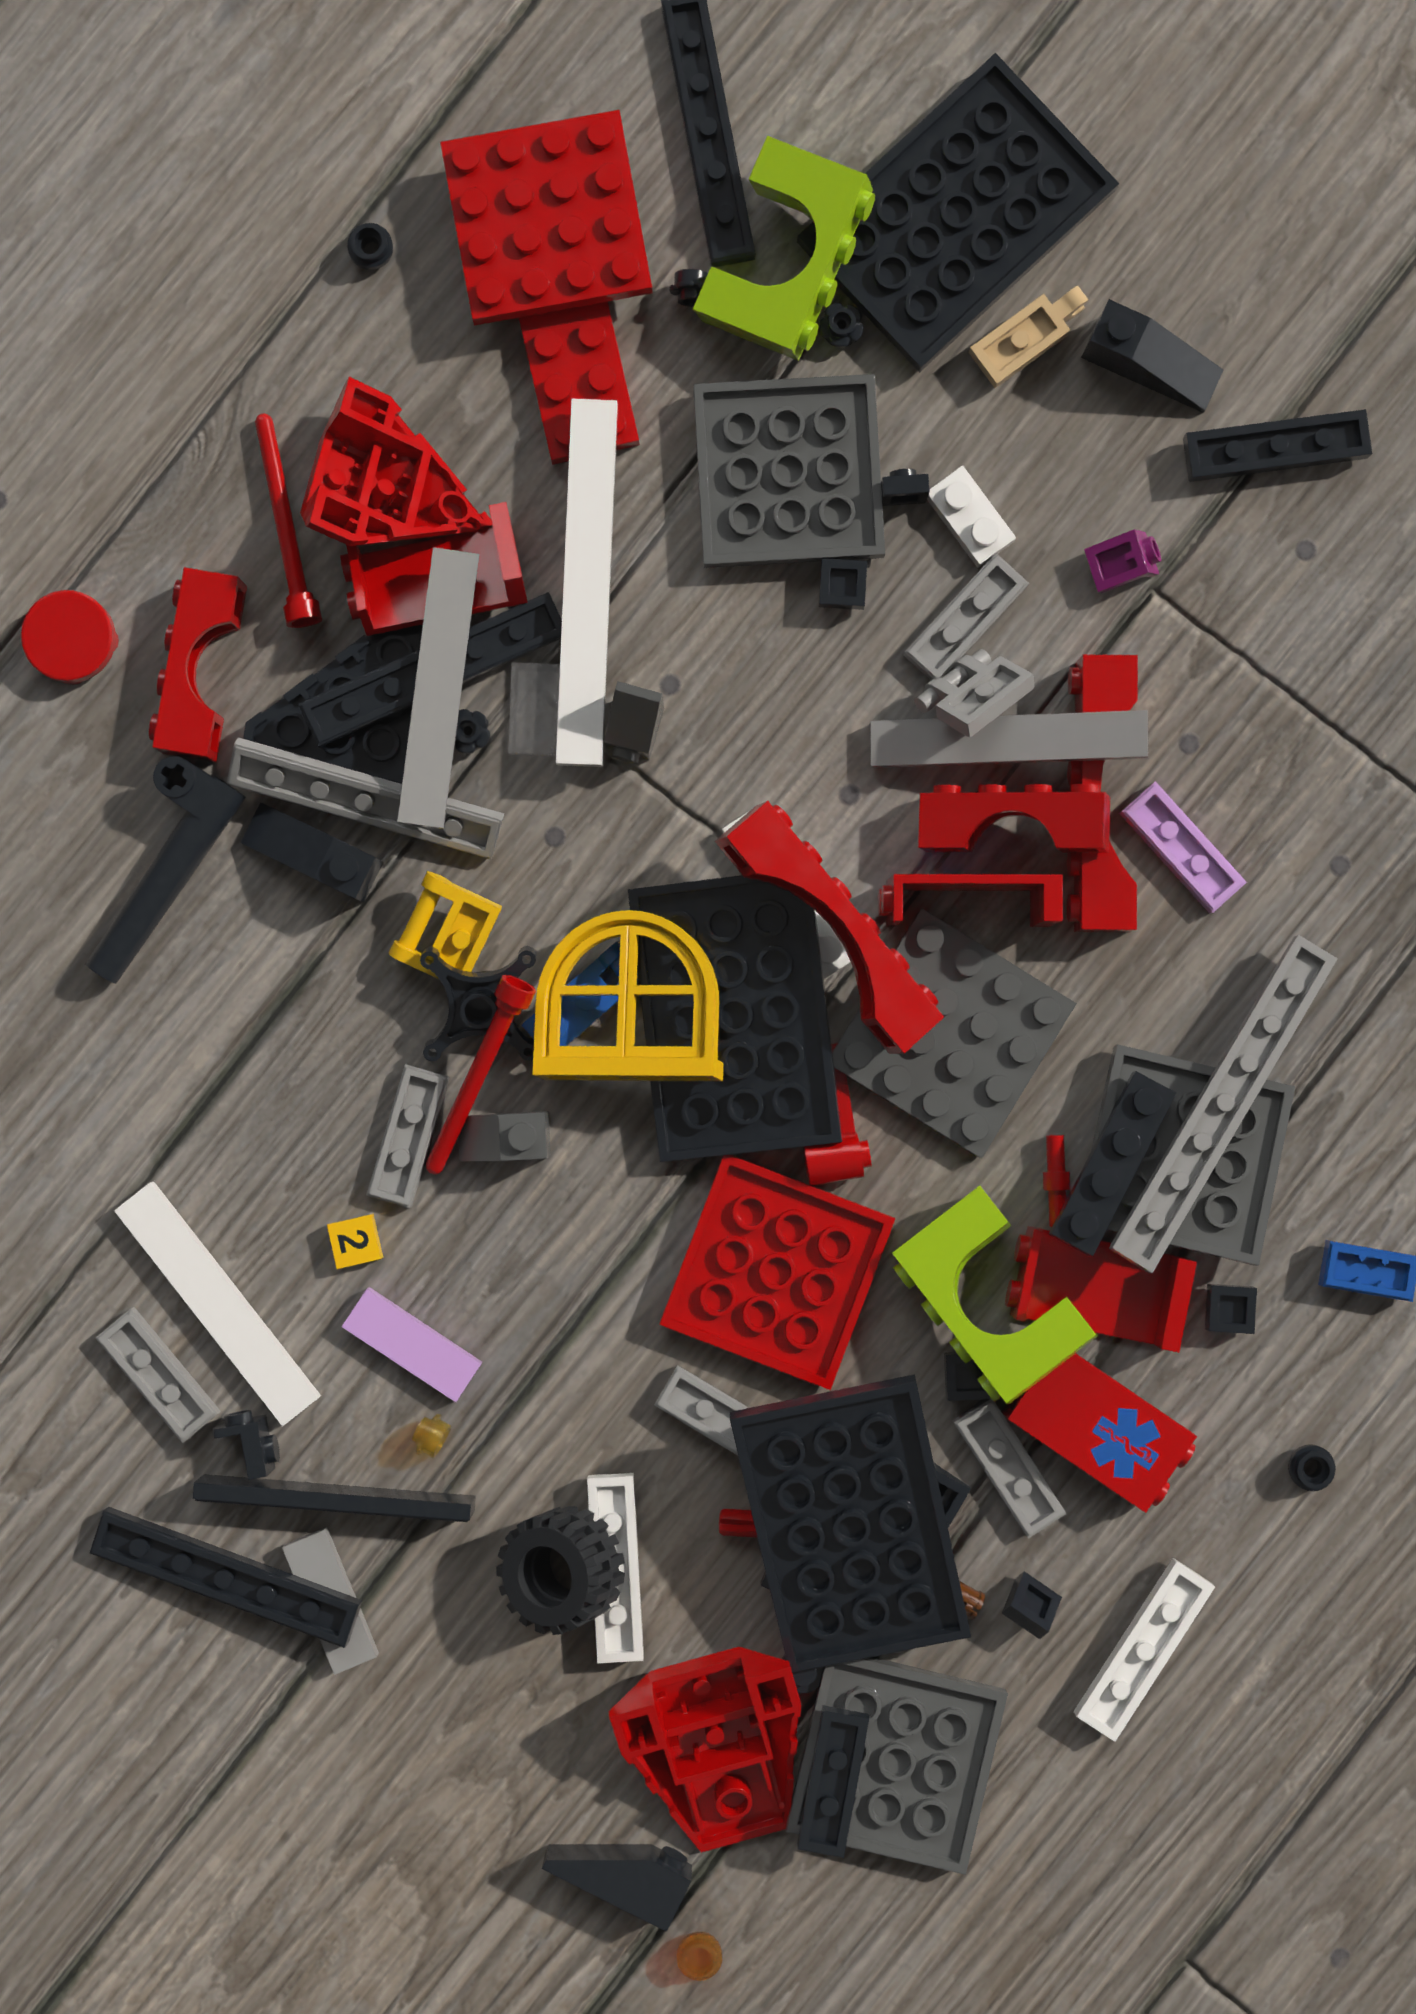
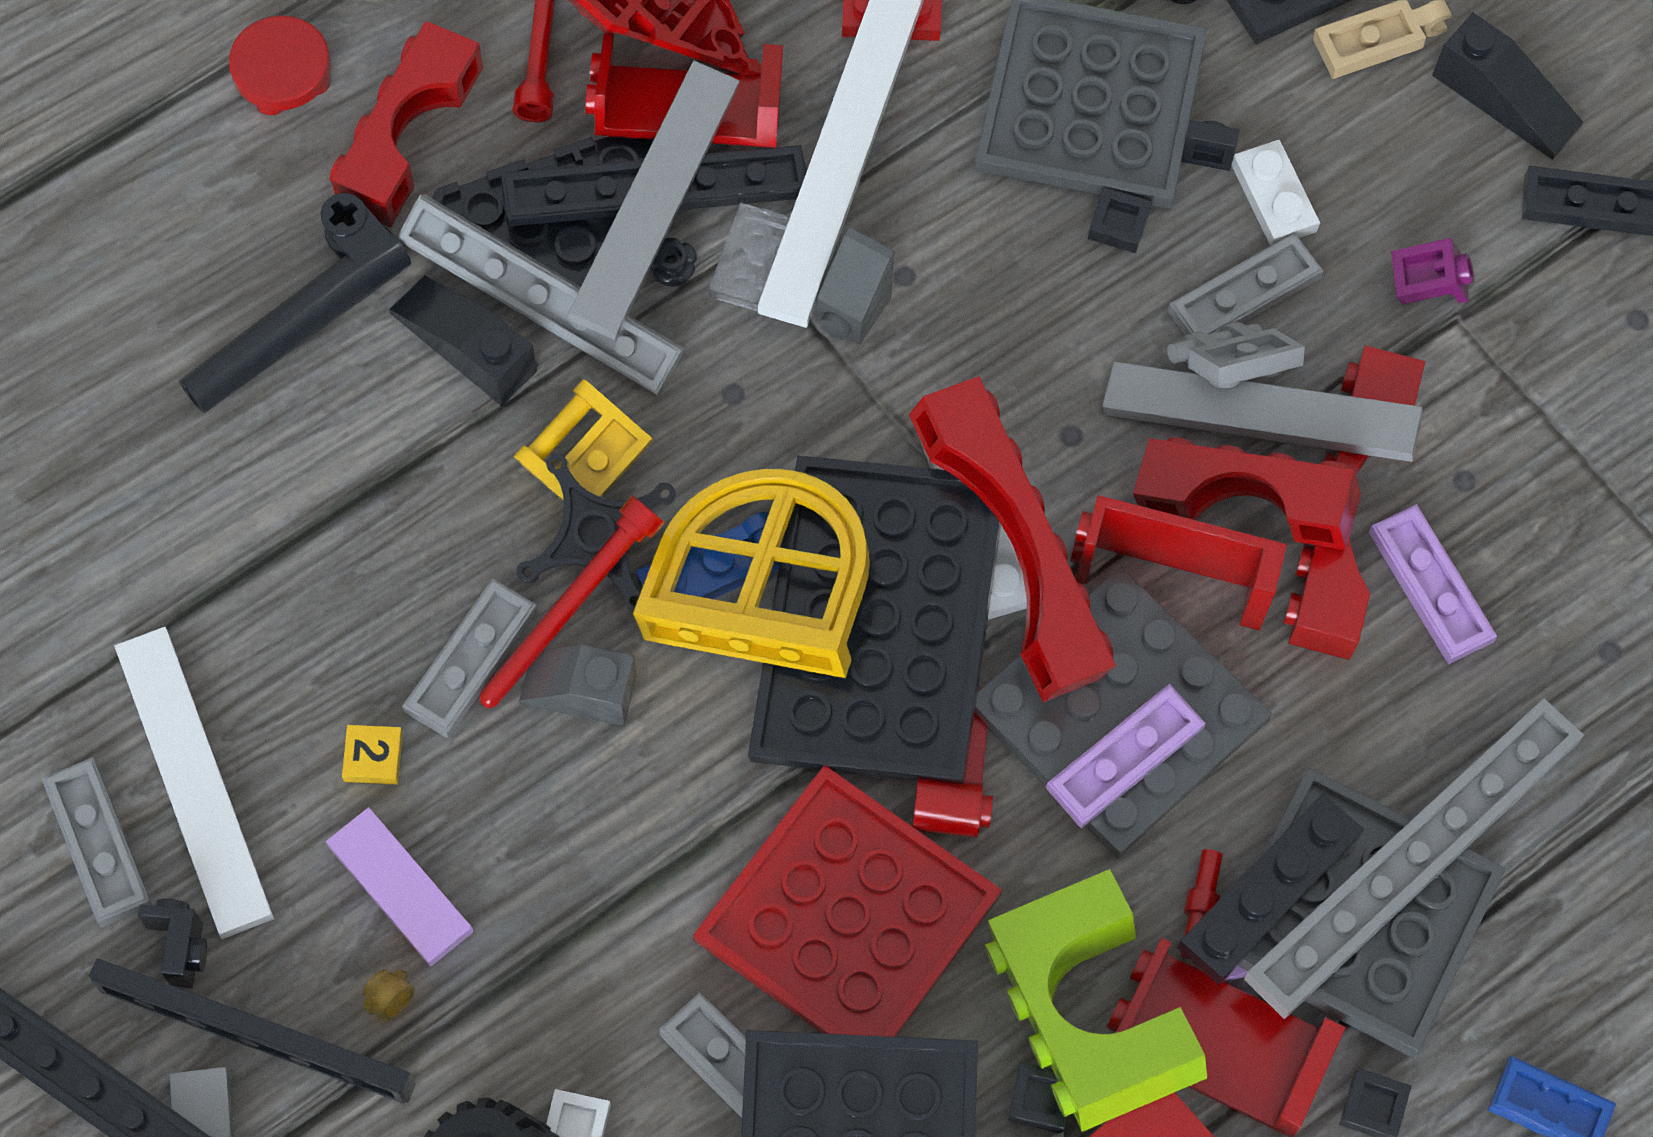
camera: 15 degrees right, 20 degrees down
(967, 1079) = (1125, 755): none -> lavender tile

